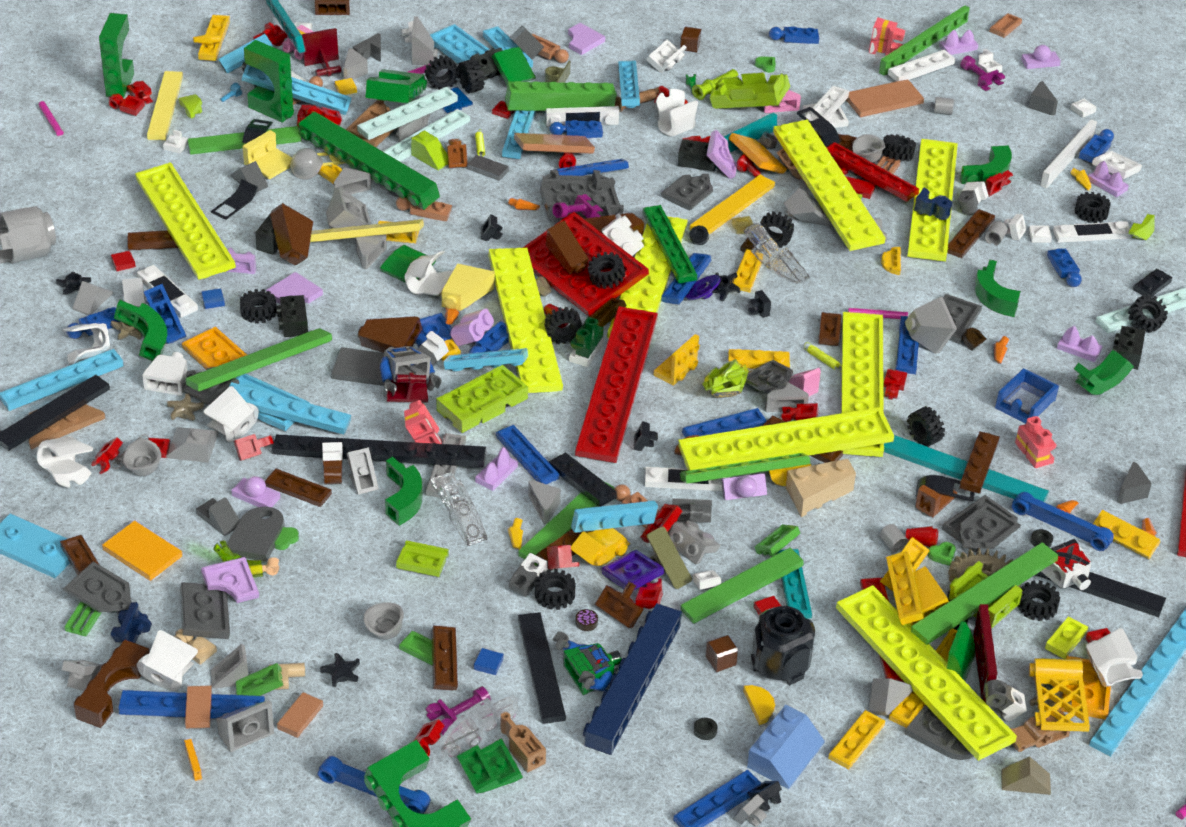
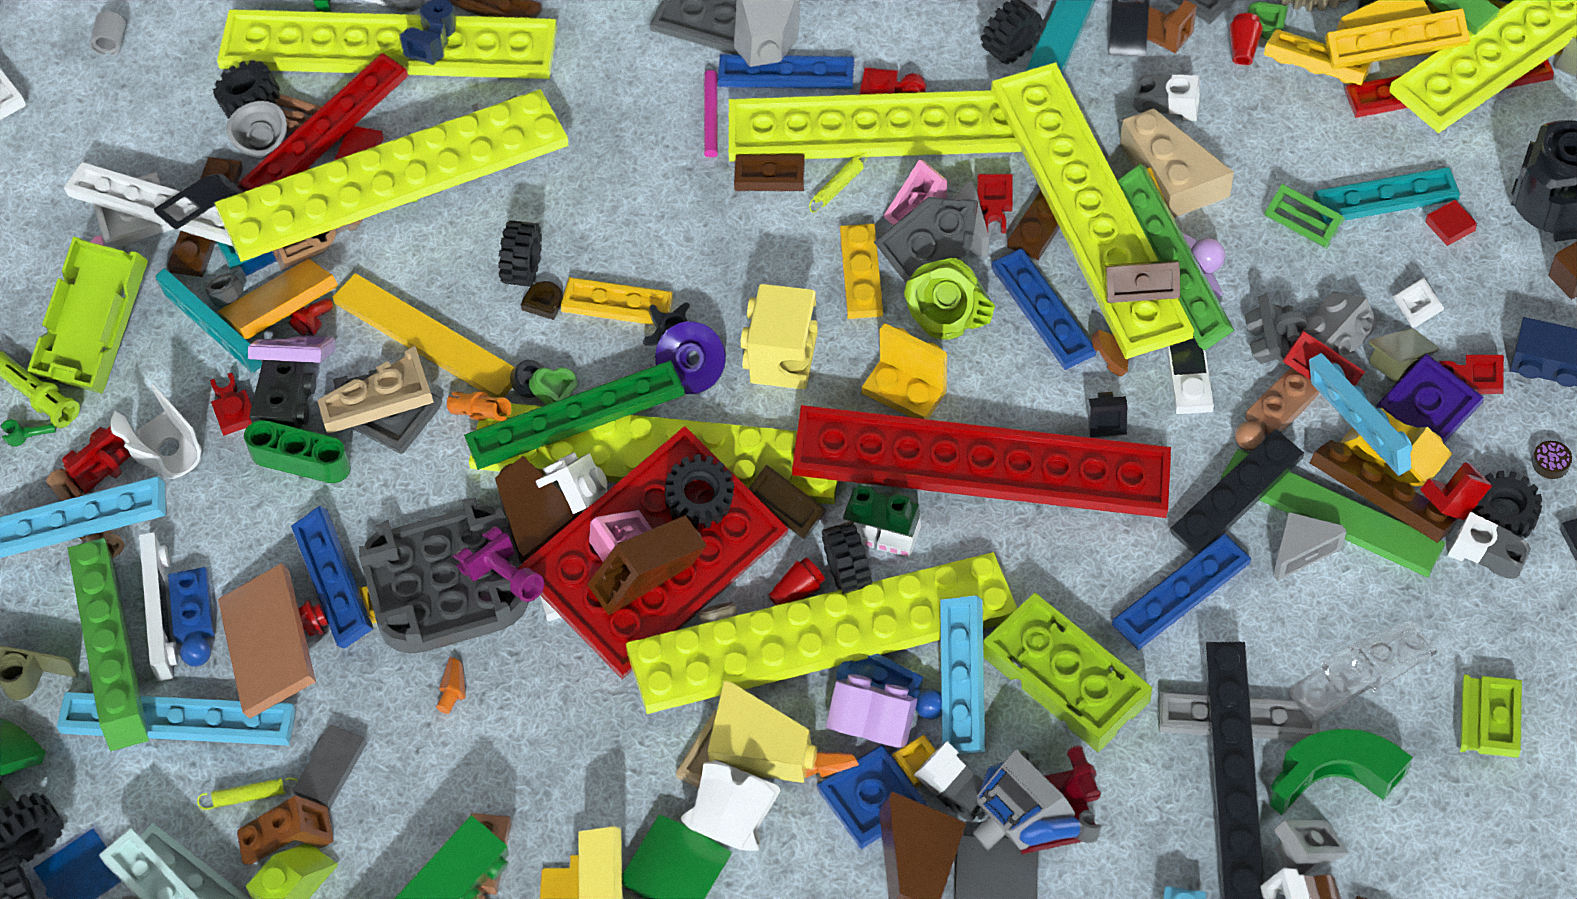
camera: 90 degrees left, 15 degrees up
(421, 424) = (1175, 757): coral hips -> none
(491, 229) = (546, 730): black tile -> none
(497, 470) = (1224, 624): lavender tile -> none
(502, 110) = (120, 765): red tile -> none
(516, 533) = (1386, 583): yellow bar -> none
(584, 237) = (615, 528): none -> bright pink slope
(620, 604) = (1518, 410): reddish brown plate -> none
(663, 159) = (284, 441): none -> green beam
(676, 292) = (697, 404): blue tile -> none
(679, 212) = (478, 406): none -> orange pin
(691, 182) = (386, 393): none -> tan wing
(692, 242) = (552, 385): none -> bright green tile
(707, 314) = (780, 336): none -> light yellow piece
(720, 443) = (1142, 281): none -> plate
(741, 223) = (483, 317): clear yellow tile -> none
(742, 585) = (1421, 255): bright green tile -> none
(760, 304) = (722, 271): black tile -> none
(775, 259) = (595, 254): clear slope -> none
(806, 209) = (445, 215): light grey slope -> none
(875, 496) = (1168, 94): none -> leg
(884, 98) = (74, 121): nougat tile -> none
(892, 260) = (568, 99): yellow tile -> none
(893, 537) = (1261, 72): light grey beam -> none

